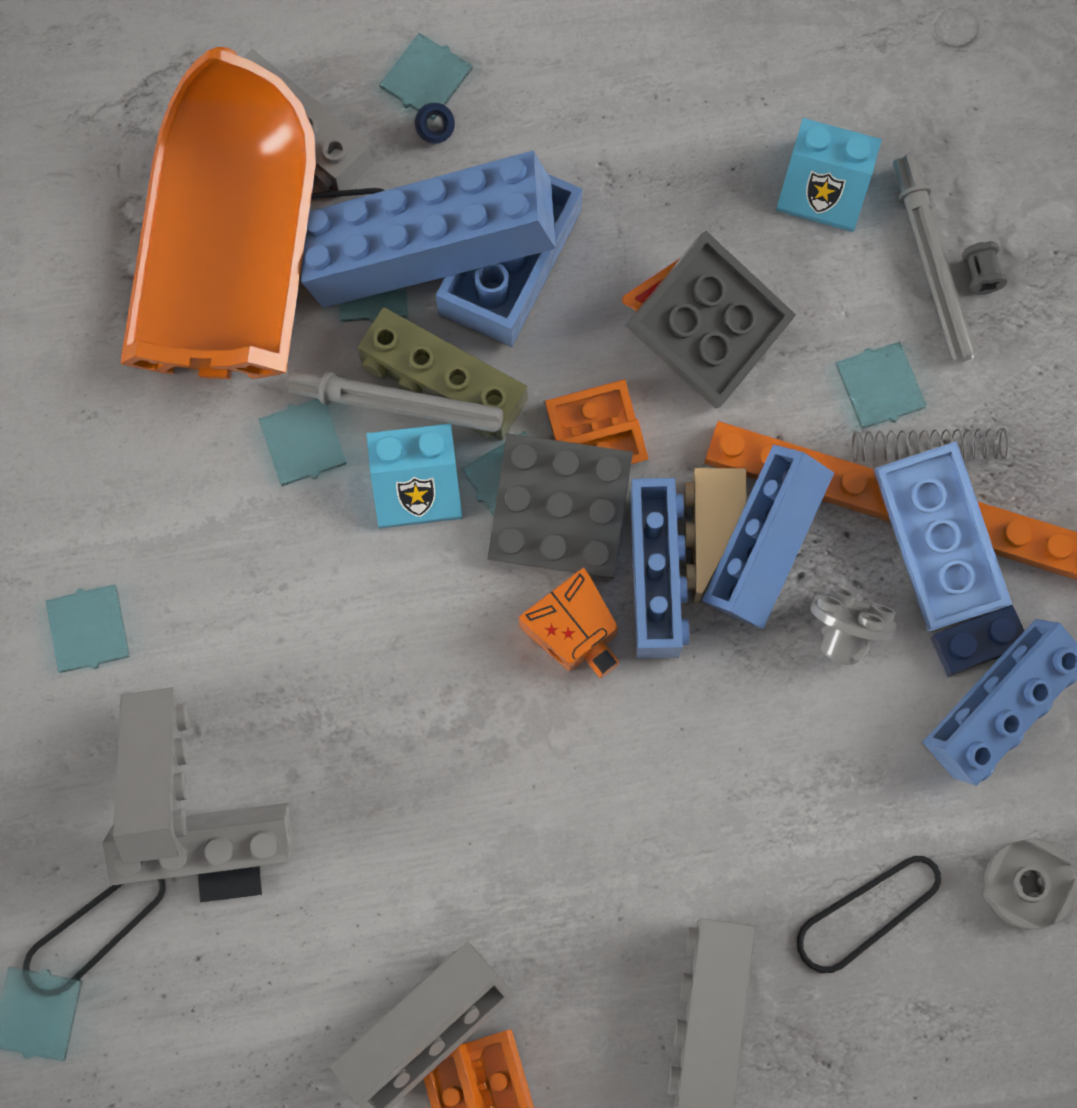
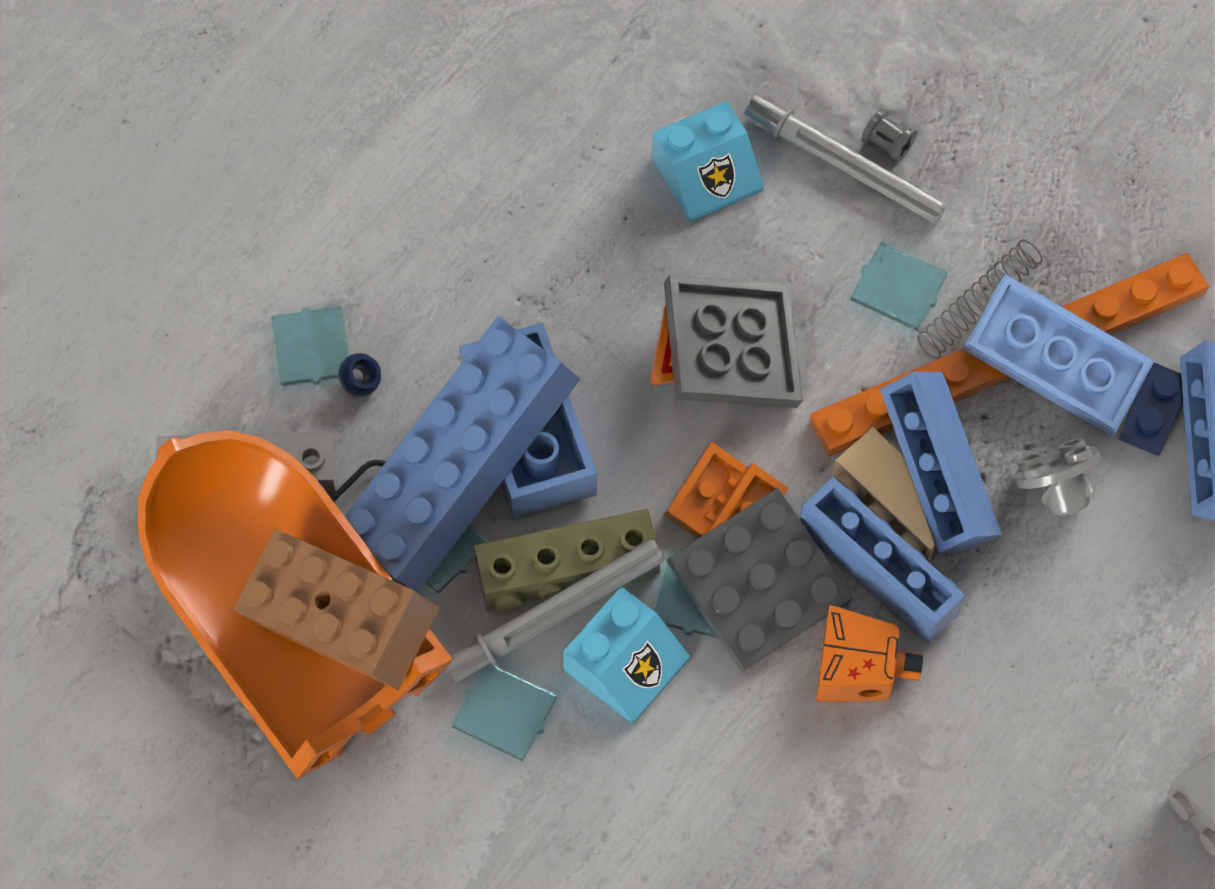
camera: 45 degrees left, 10 degrees down
(236, 268) = (337, 608): none -> medium nougat brick

